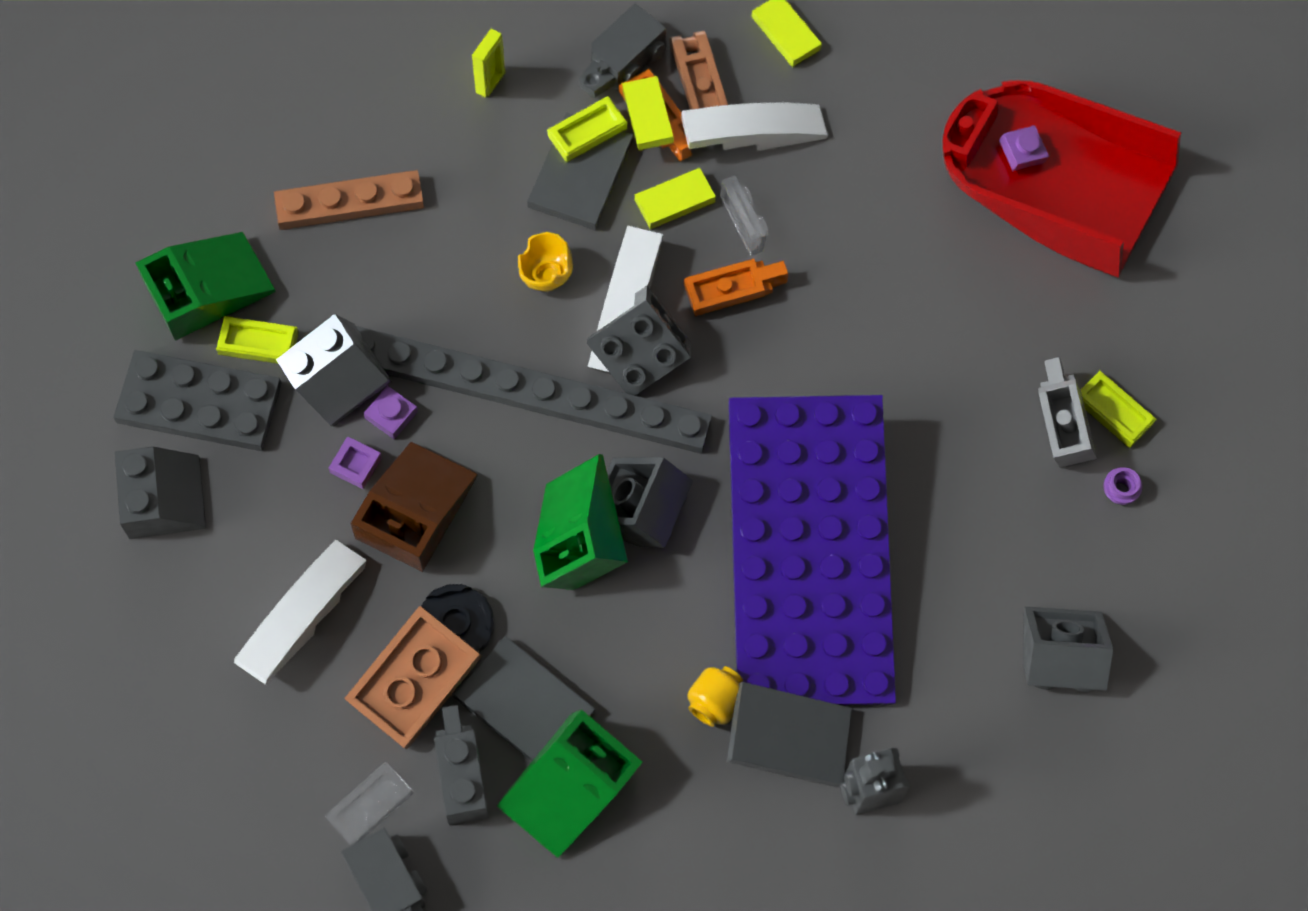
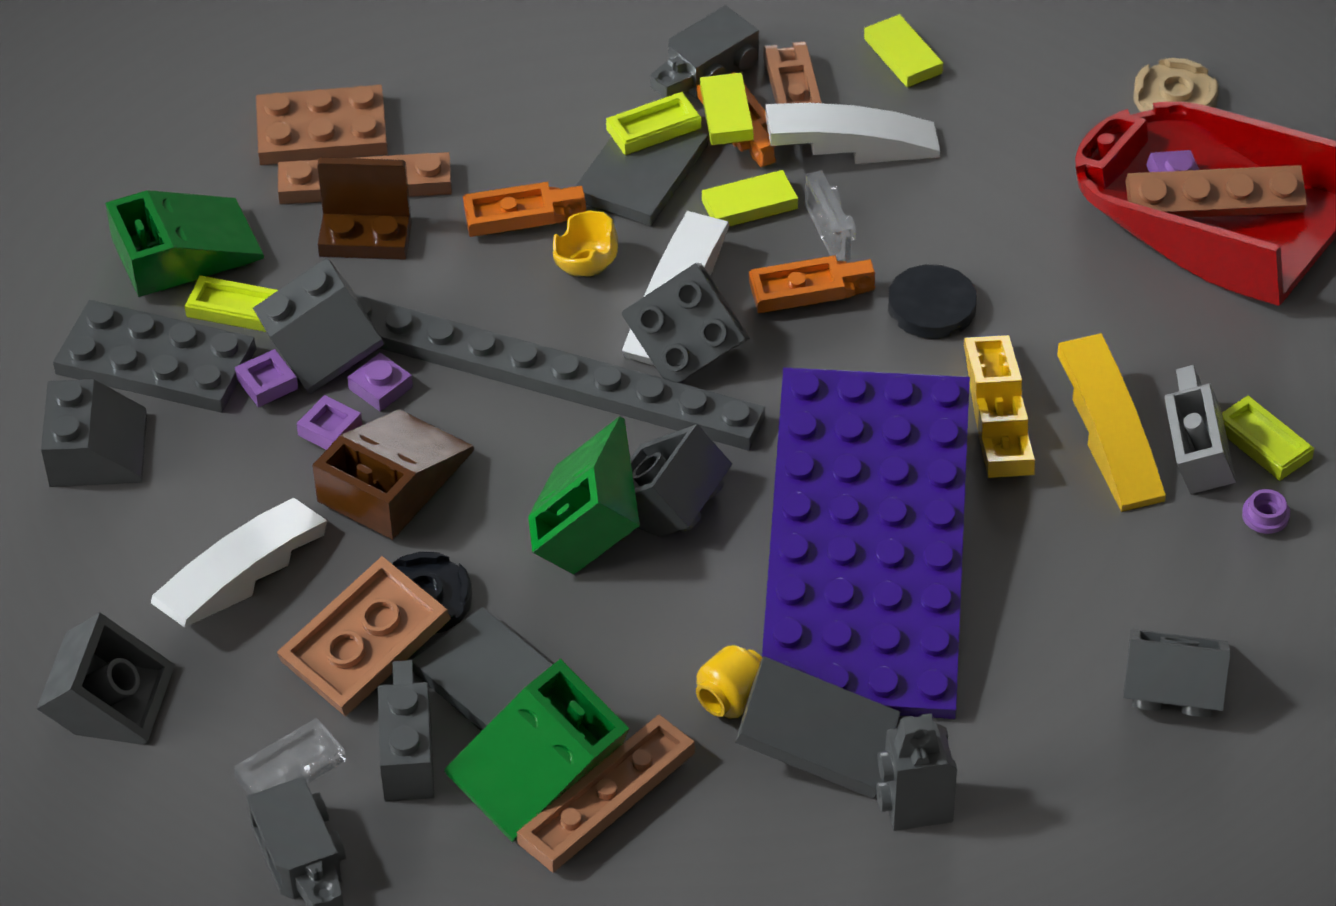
camera: 10 degrees right, 20 degrees down
(208, 741) = (106, 683): none -> dark grey slope
(295, 419) = (266, 378): none -> medium lavender plate
(304, 145) = (321, 124): none -> nougat plate
(355, 244) = (364, 208): none -> reddish brown bracket
(485, 224) = (521, 207): none -> orange hinge
(488, 63) = (546, 50): neon yellow tile -> none
(626, 812) = (605, 793): none -> nougat plate
(836, 292) = (932, 300): none -> black tile
(902, 400) = (999, 406): none -> yellow slope
(994, 410) = (1112, 423): none -> yellow slope
(1015, 54) = (1174, 81): none -> tan tile
(1061, 170) = (1220, 191): none -> nougat plate

